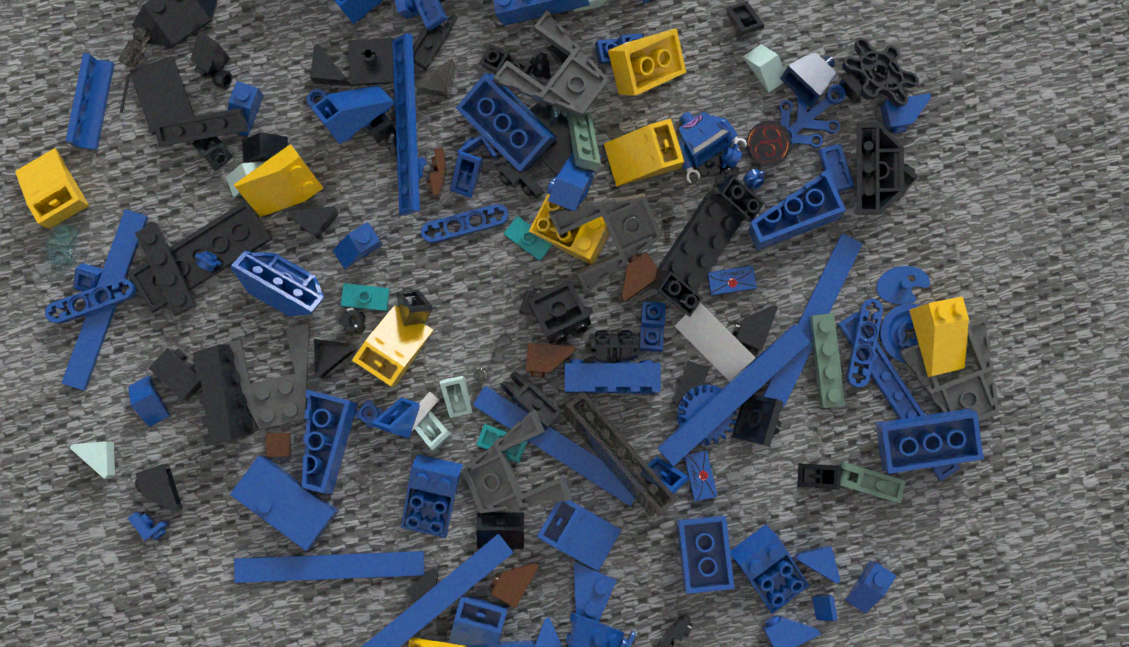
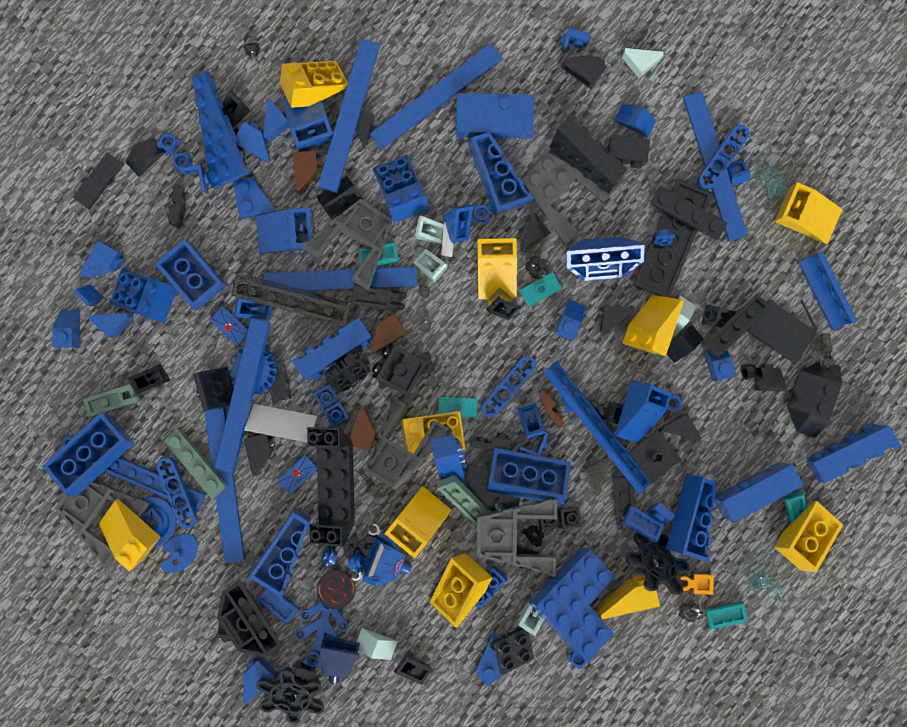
camera: 155 degrees right, 5 degrees up
(278, 445) = (527, 151): reddish brown tile -> none

